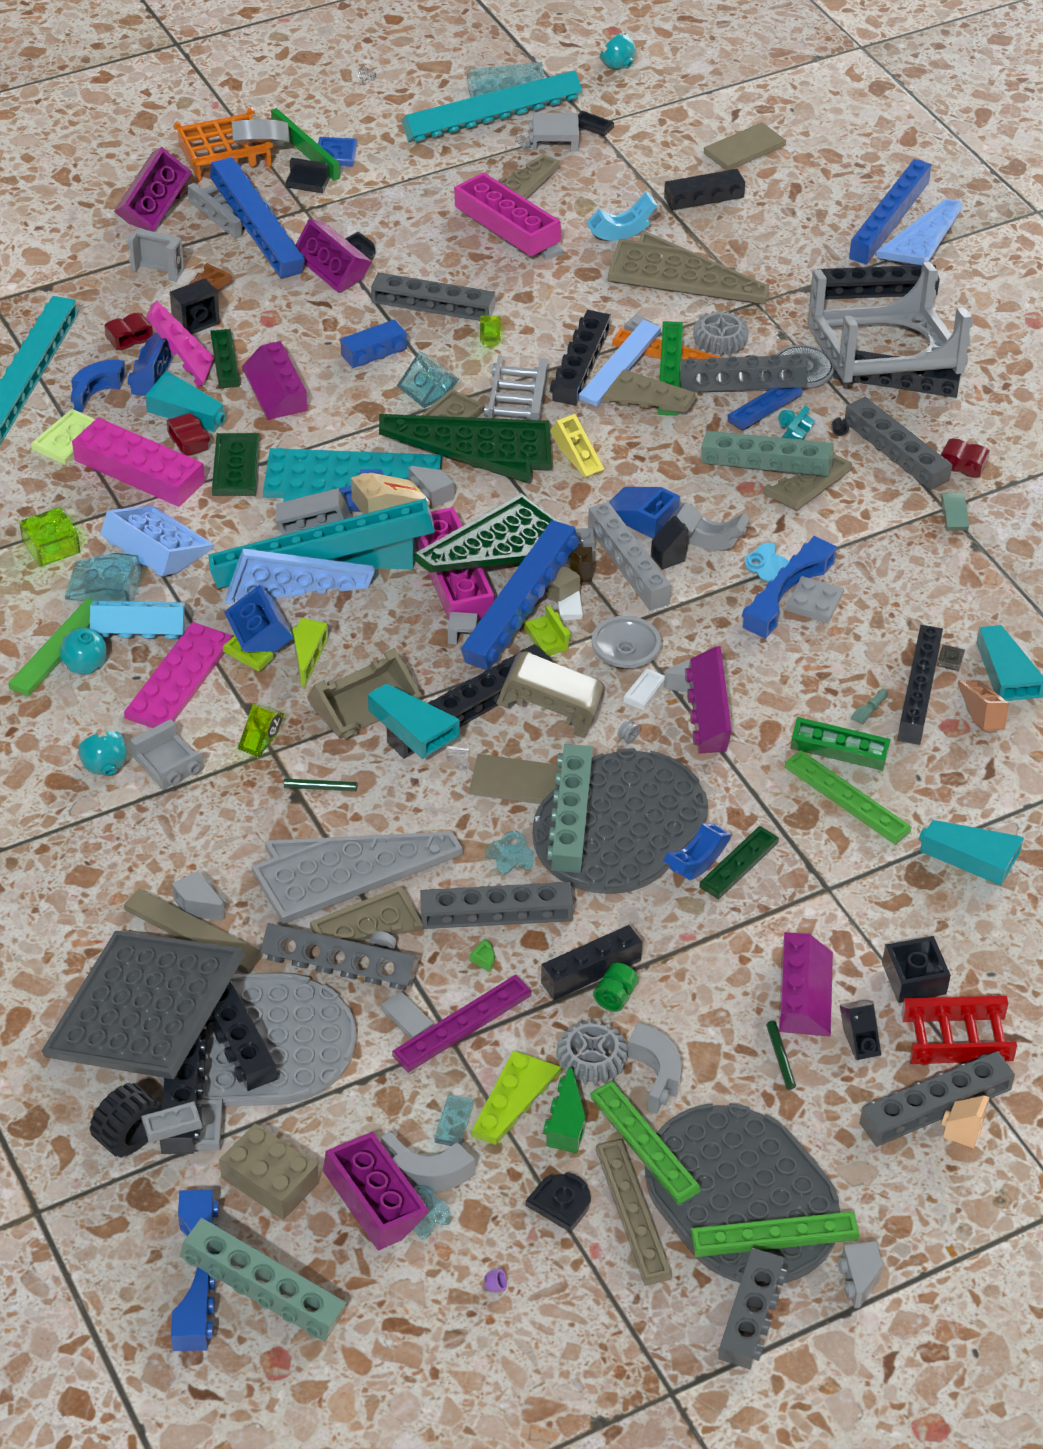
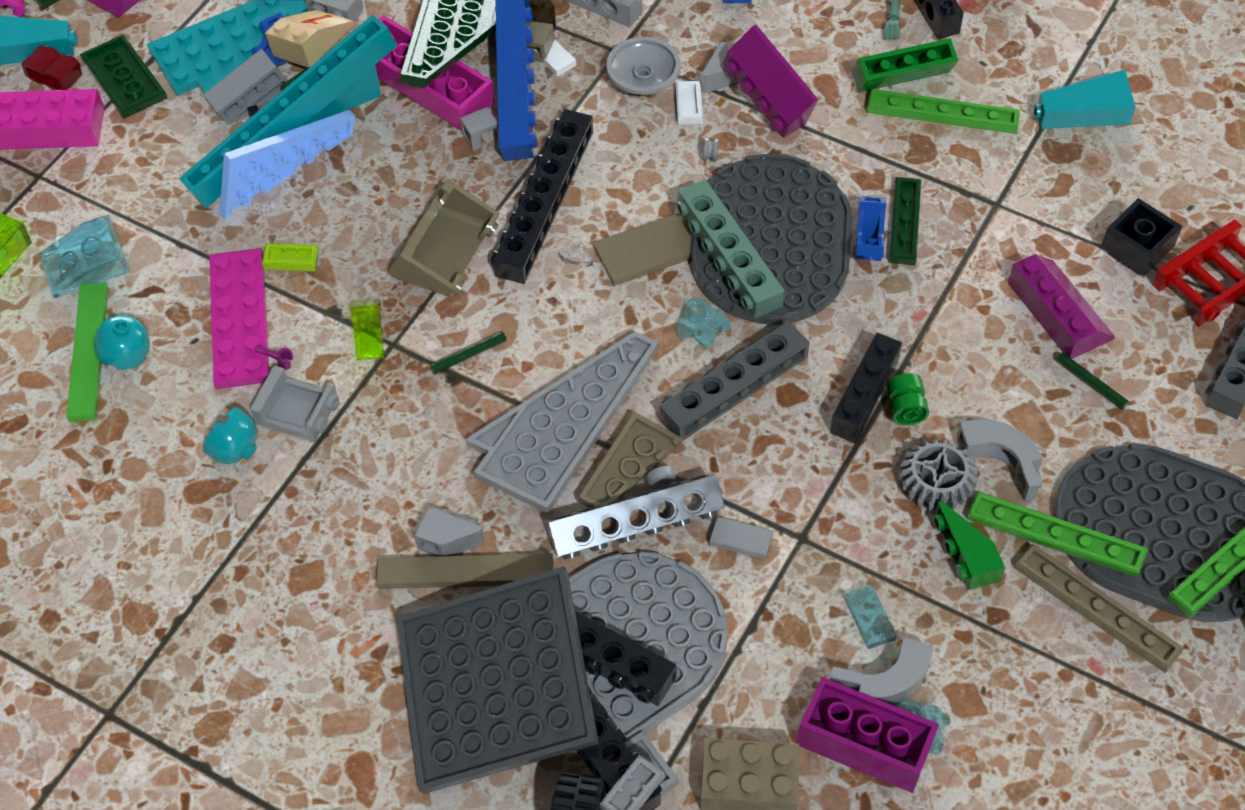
camera: 30 degrees left, 10 degrees up
(137, 618) = (152, 279): medium azure slope -> none
(155, 537) = (102, 188): light blue slope -> none
(184, 716) = (282, 354): none -> magenta hand
(258, 622) = (281, 222): blue slope -> none
(309, 642) = (345, 222): lime slope -> none
(413, 720) = (517, 241): teal slope -> none
(461, 1023) = (795, 516): magenta tile -> none
(483, 956) = (760, 437): bright green tile -> none
(495, 1281) = (1043, 754): medium lavender hinge -> none
(513, 1094) = (900, 556): lime wing -> none
(548, 632) = (561, 91): lime bracket -> none
(552, 688) = (619, 141): dark tan windscreen -> none
(561, 1199) = (1028, 635): black tile -> none
(861, 1029) = (1140, 317): black slope -> none

